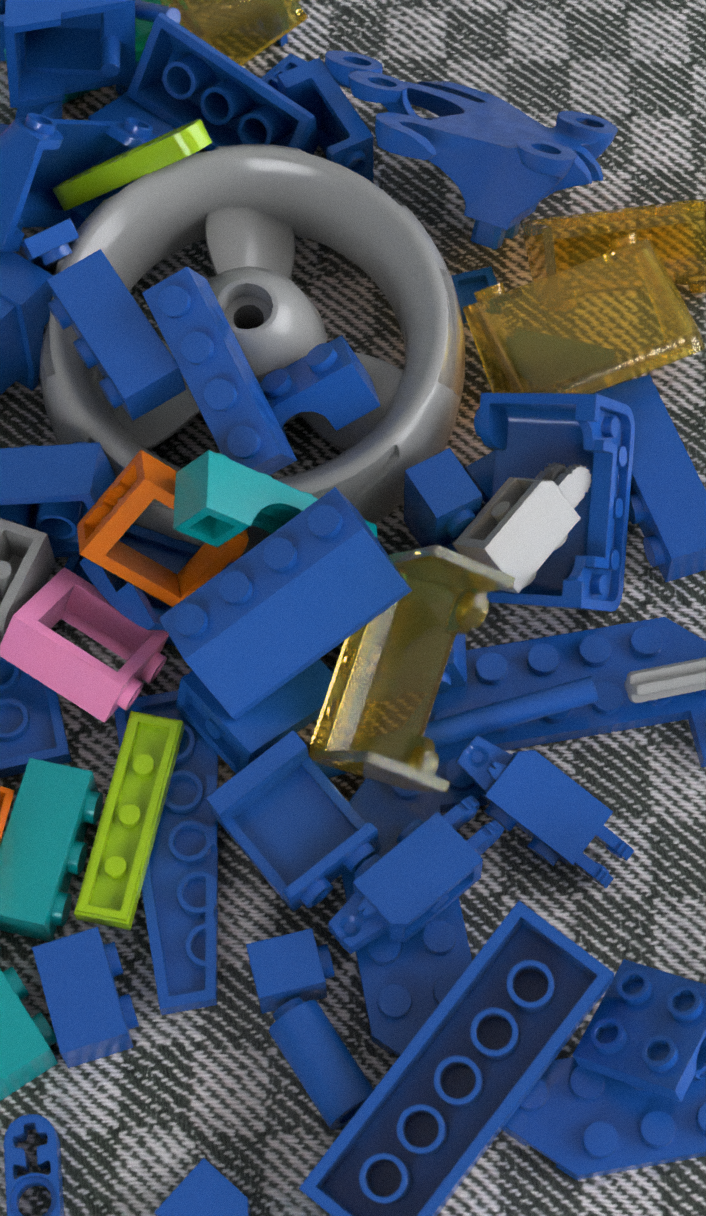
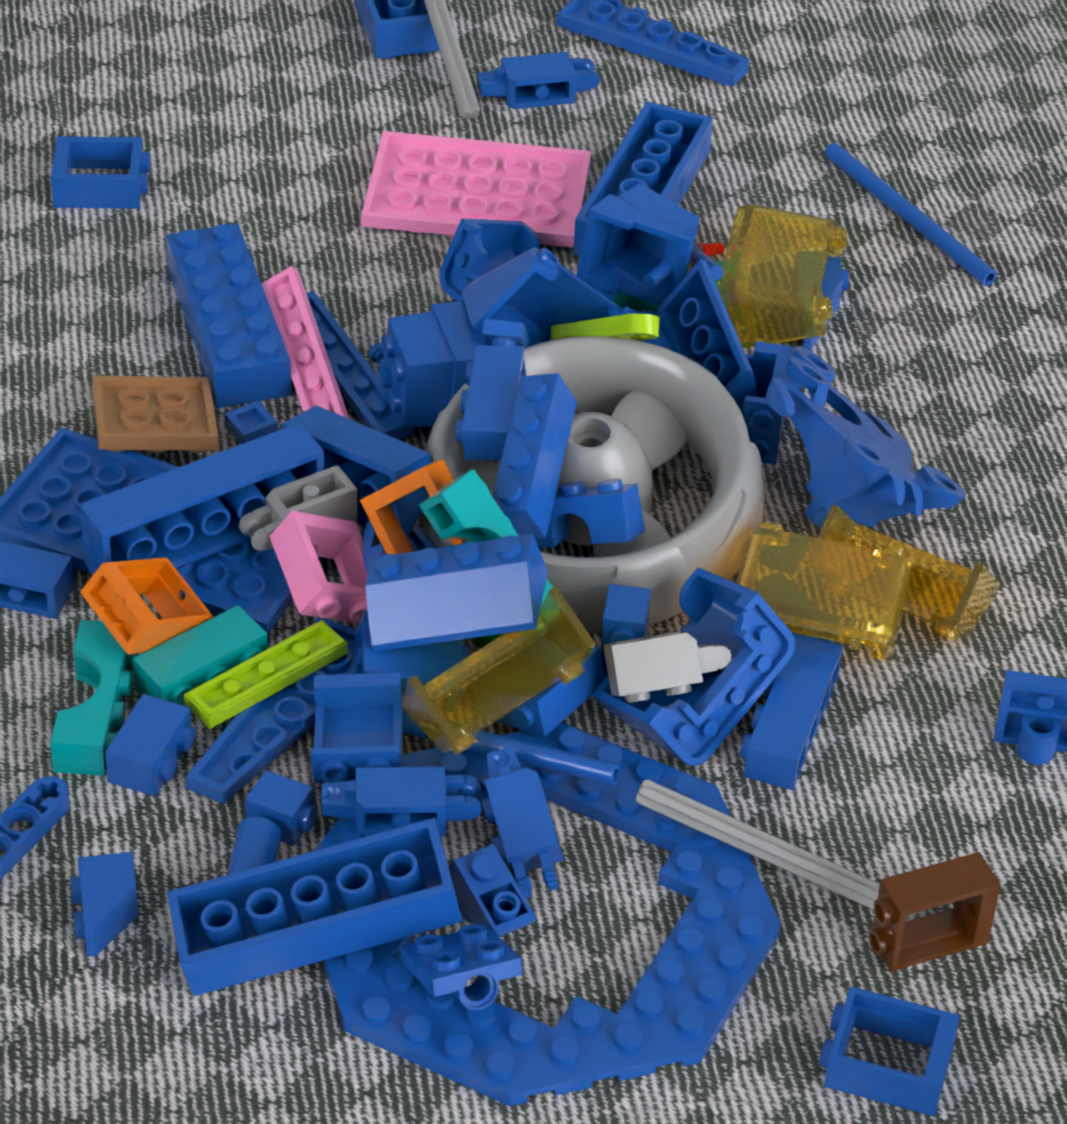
camera: 35 degrees right, 20 degrees down
(597, 917) = (489, 892): none -> blue slope

